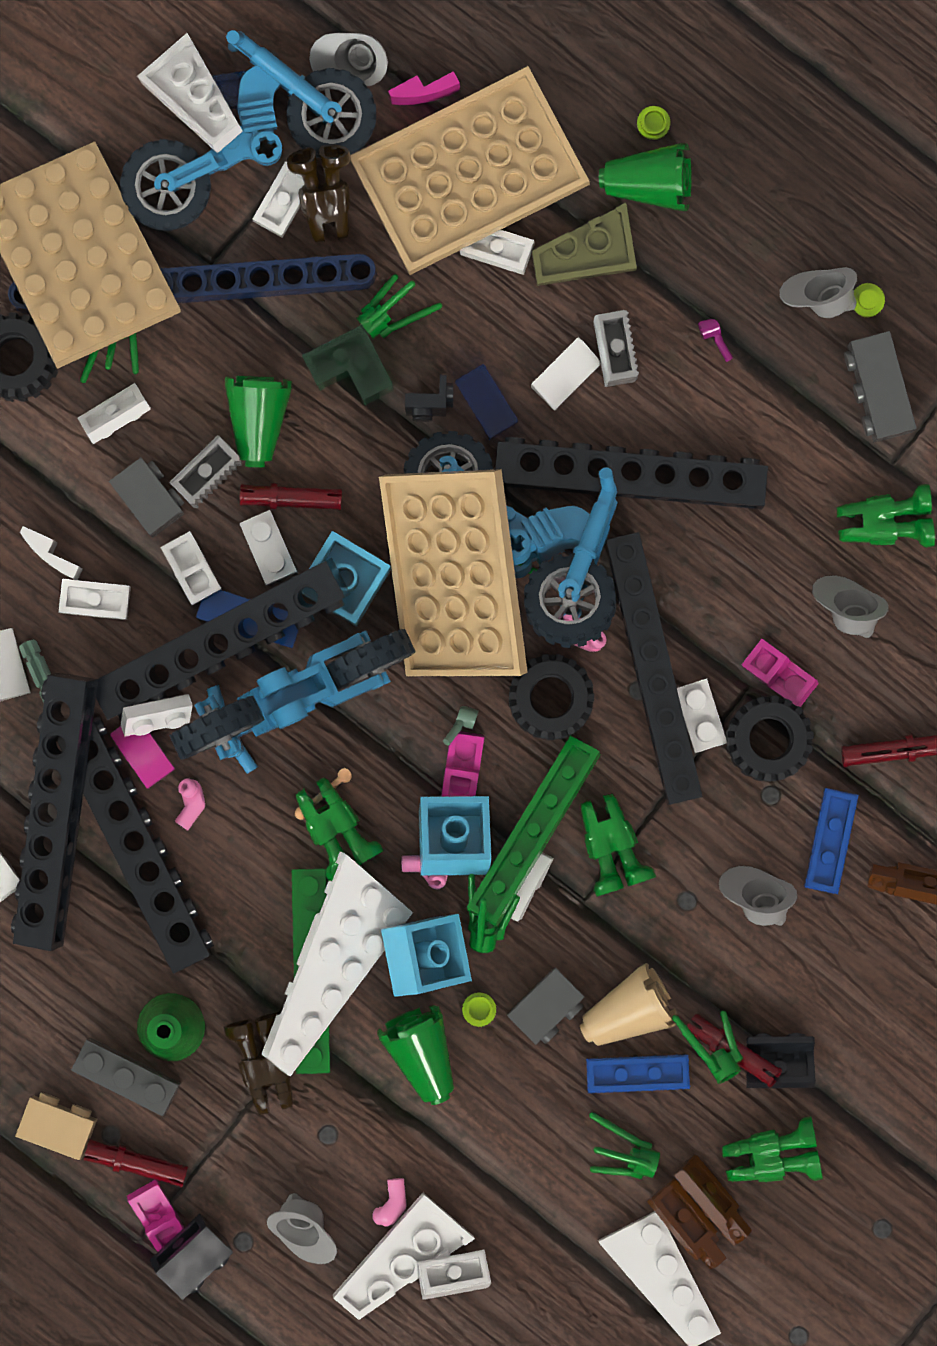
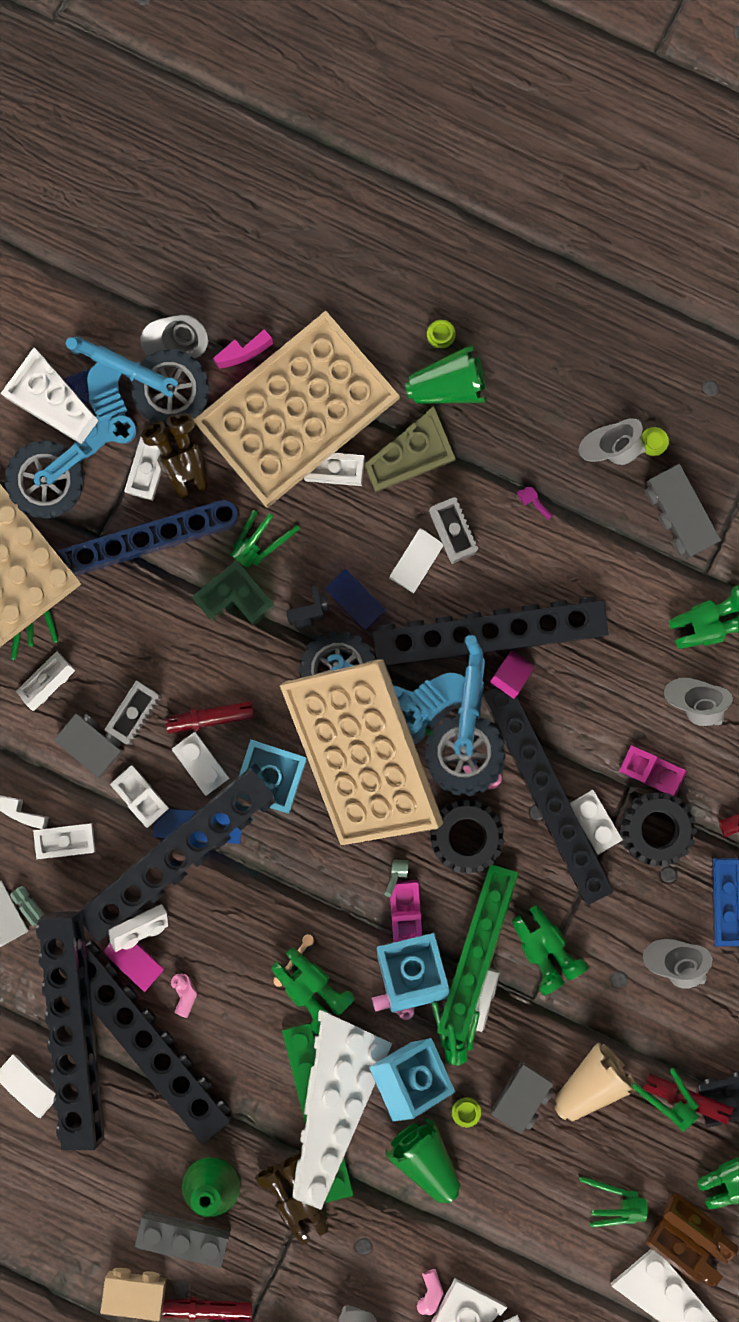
camera: 10 degrees left, 0 degrees up
(256, 415) = (165, 655): green cone -> none
(291, 695) = (245, 890): piece -> none
(637, 1073) = (611, 1135): blue tile -> none
(645, 525) = (512, 674): none -> dark pink slope

